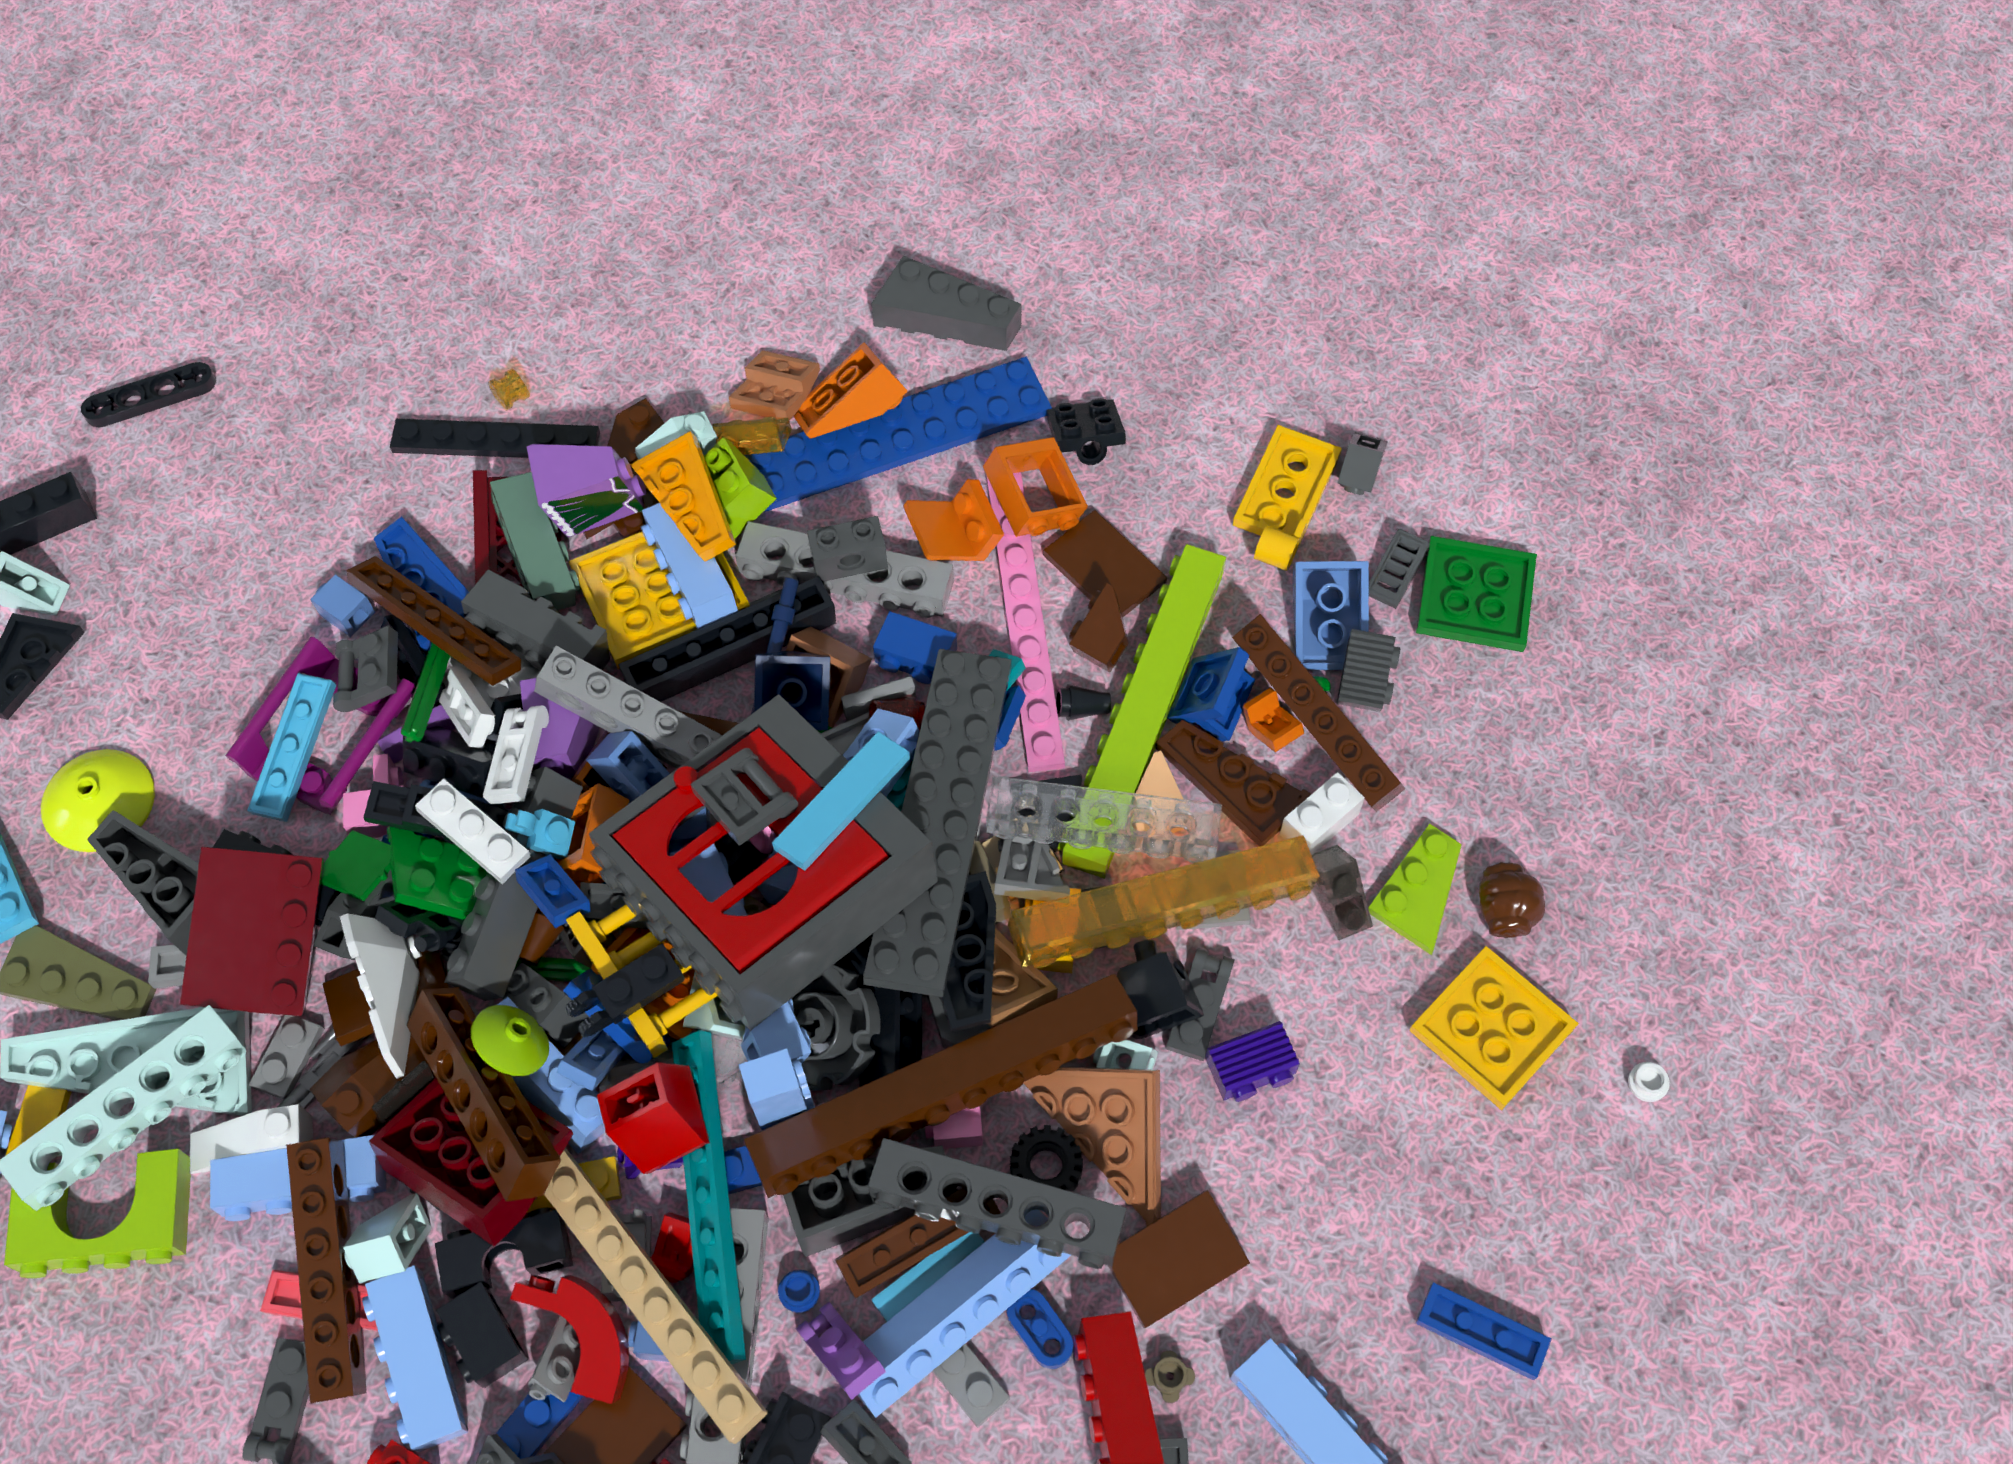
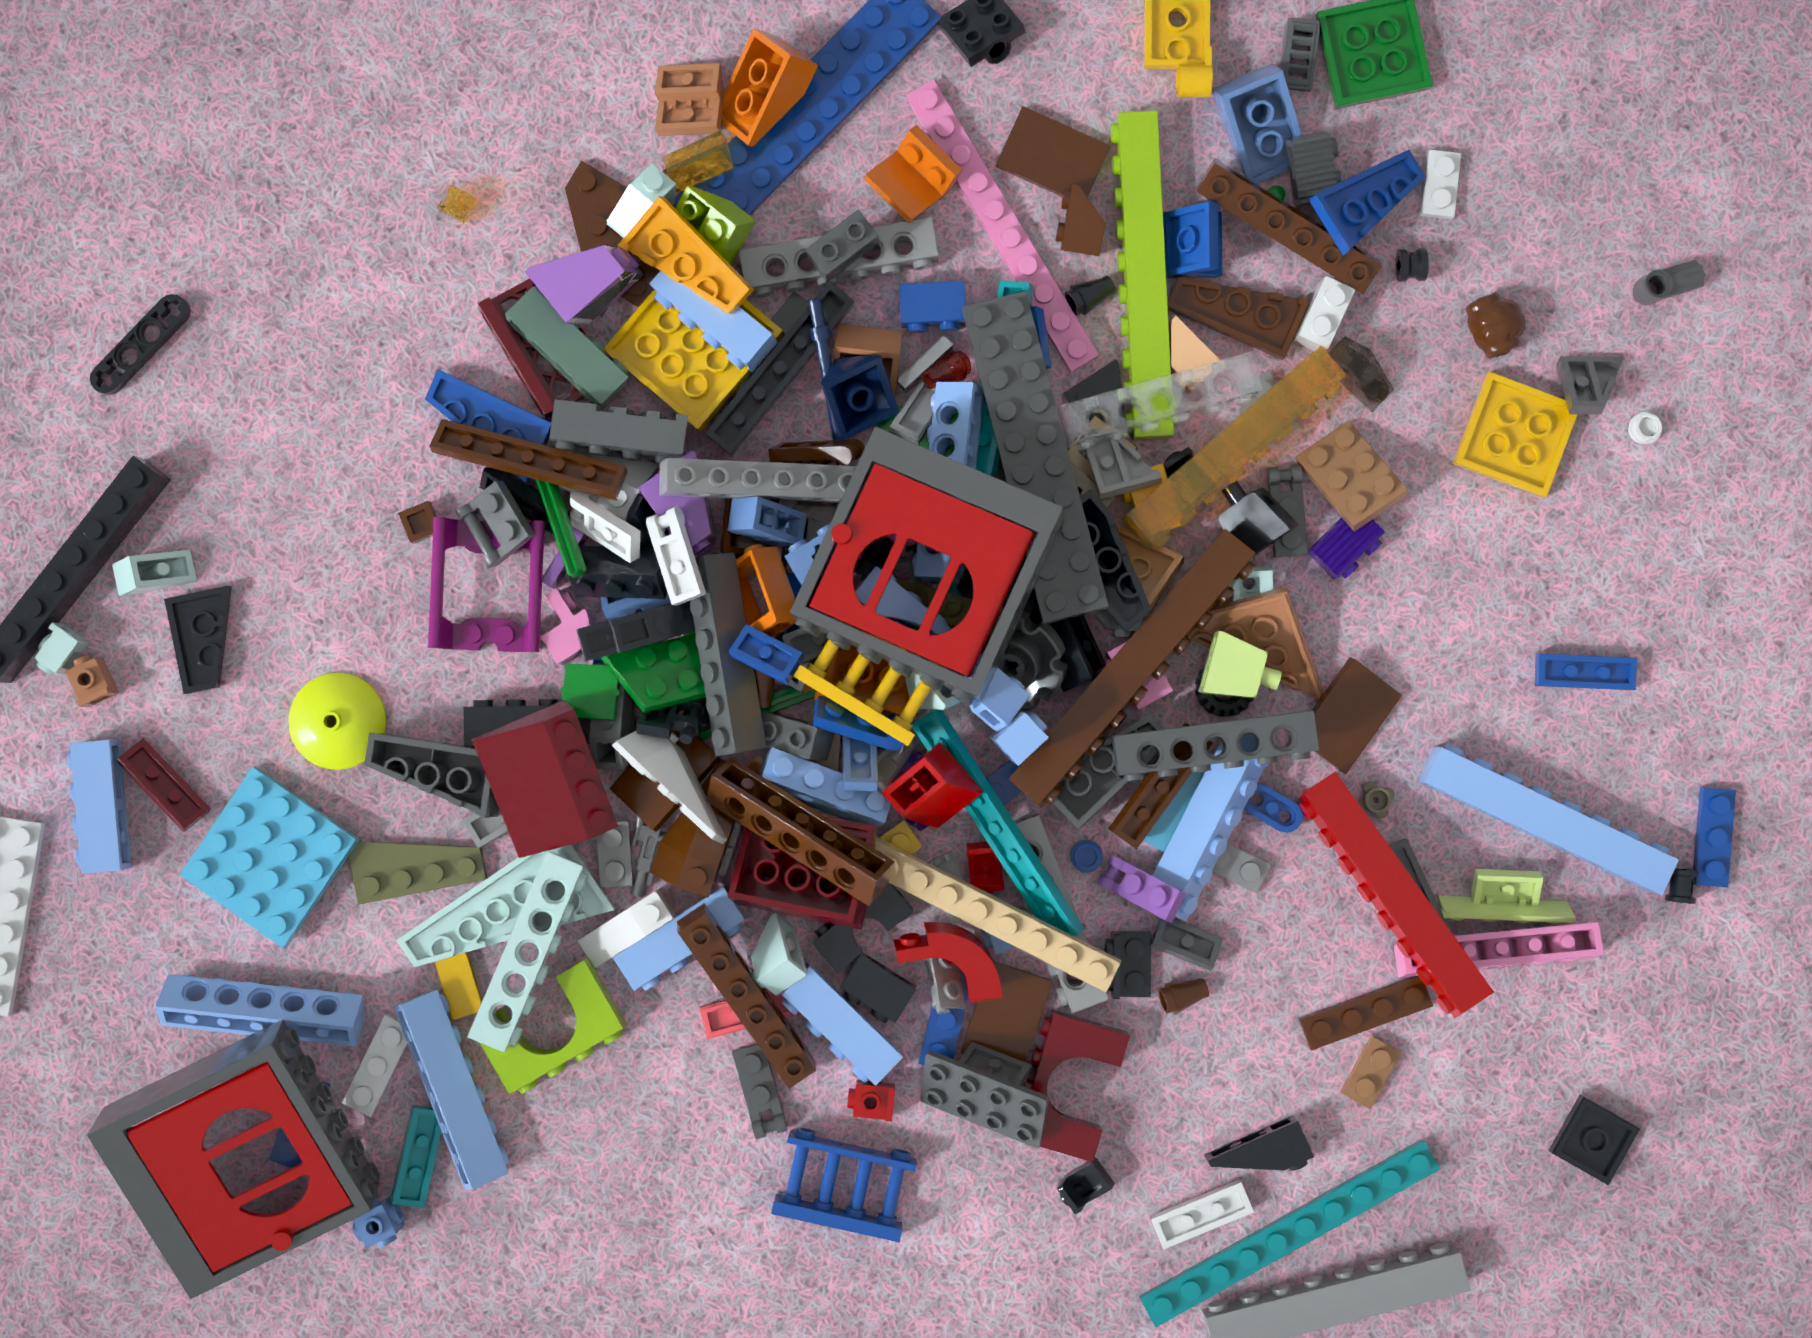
camera: 25 degrees left, 25 degrees up
(292, 641) = (418, 521): none -> reddish brown plate
(292, 747) = (474, 614): medium azure tile -> none
(342, 605) = (435, 471): medium blue brick -> none
(472, 831) = (679, 636): white plate -> none
(484, 438) = (470, 257): black plate -> none
(509, 1040) = (793, 792): lime dish -> none
(545, 830) = (732, 608): medium azure plate -> none
(627, 990) = (874, 710): black hinge -> none
(734, 804) = (894, 542): dark grey plate -> none
(841, 801) = (977, 502): medium azure tile -> none
(1028, 456) = (984, 94): orange window -> none
(1063, 1138) = (1236, 668): none -> yellowish green torso
(1270, 721) = (1251, 247): orange bracket -> none
(1286, 990) = (1351, 476): none -> medium nougat plate
(1411, 716) = (1364, 199): none -> blue wing
(1419, 889) = (1419, 341): lime wing -> none
(1439, 806) = (1412, 265): none -> black wheel
(1501, 744) = (1440, 184): none -> white plate
(1596, 1002) = (1587, 382): none -> flat silver wing
(1725, 935) = (1669, 282): none -> dark grey piece

